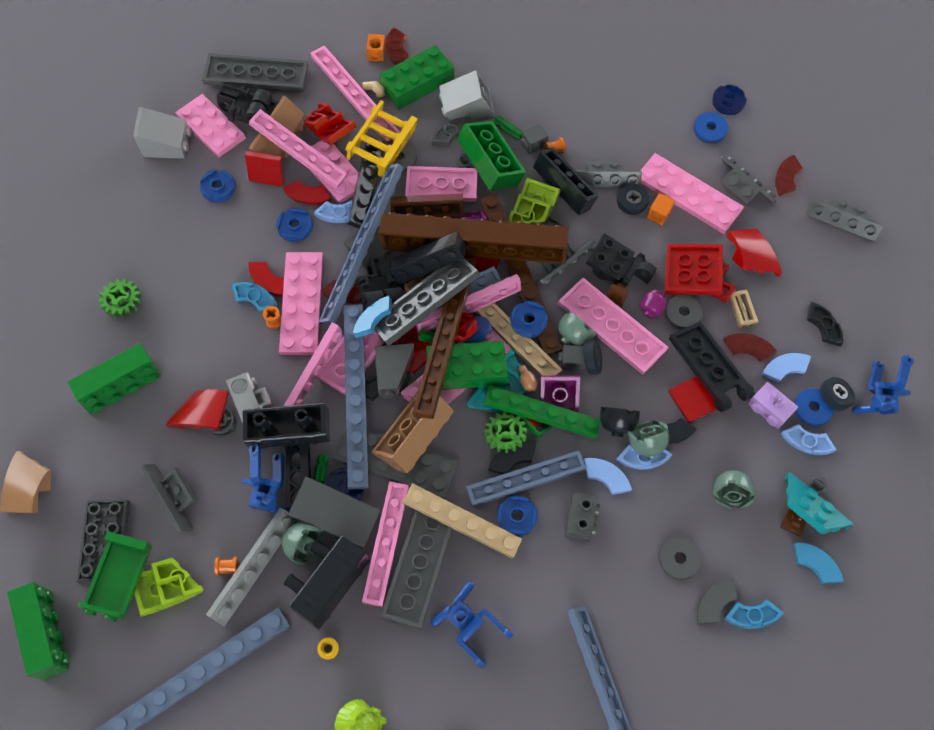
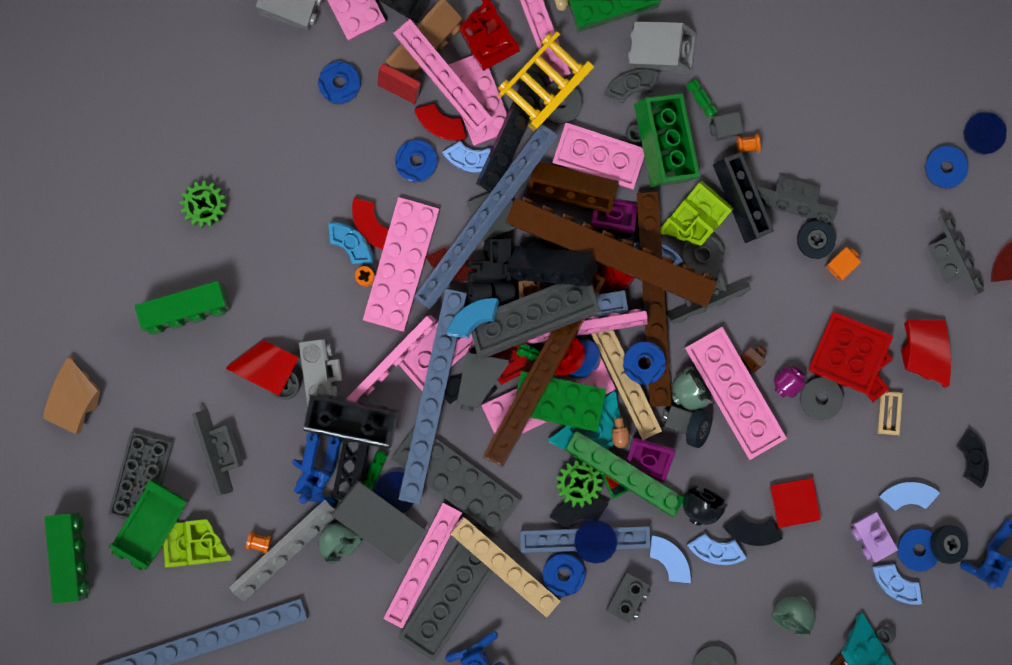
camera: 20 degrees right, 20 degrees up
(321, 648) = (339, 659): yellow plate -> none
(328, 582) = (356, 592): black piece -> none
(411, 436) = (466, 469): medium nougat slope -> none
(536, 474) = (595, 541): none -> clear blue tile
(617, 263) = (769, 320): black plate -> none
(649, 438) = (725, 538): sand green cylinder -> none
(690, 193) = (886, 249): bright pink plate -> none
(705, 359) = (824, 462): black hinge -> none
(749, 345) = (879, 458): clear red tile -> none

